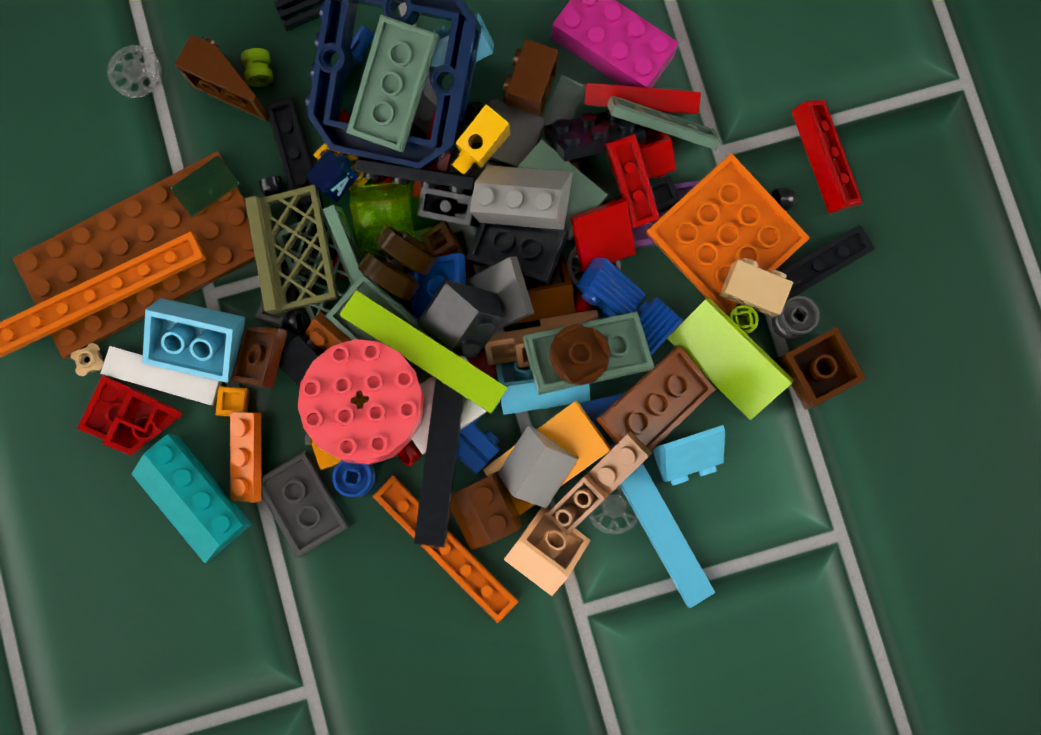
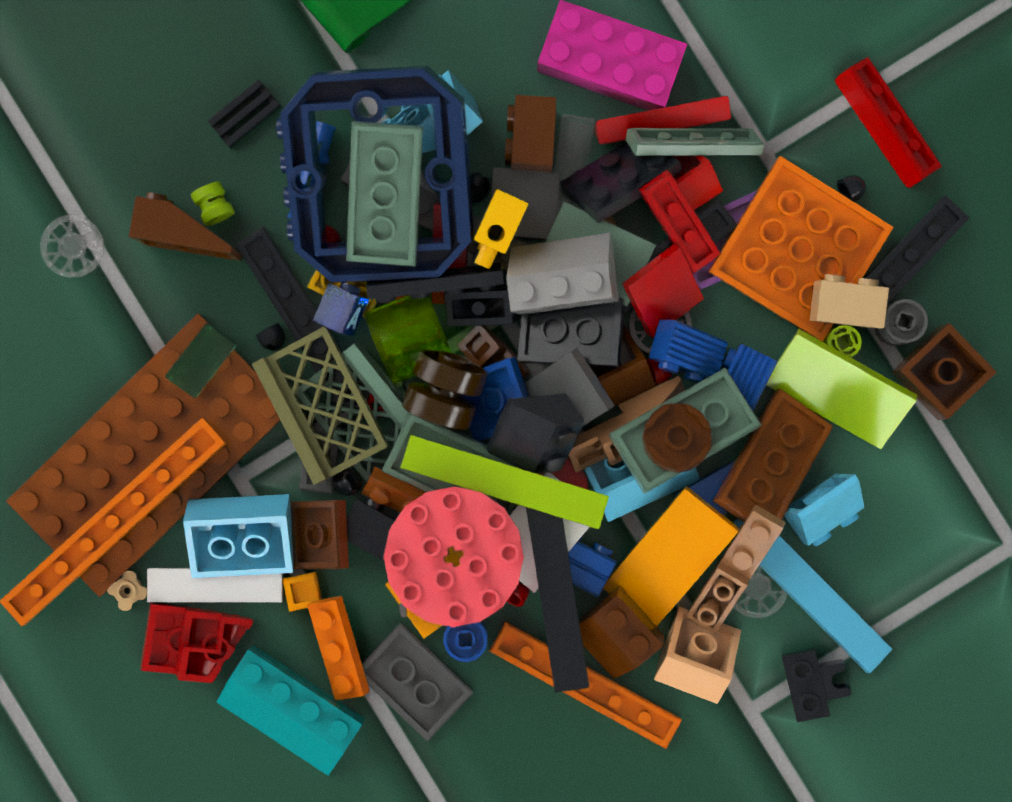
camera: 15 degrees left, 5 degrees up
(536, 468) = (662, 571): light grey slope -> none
(638, 603) = (812, 683): none -> black plate

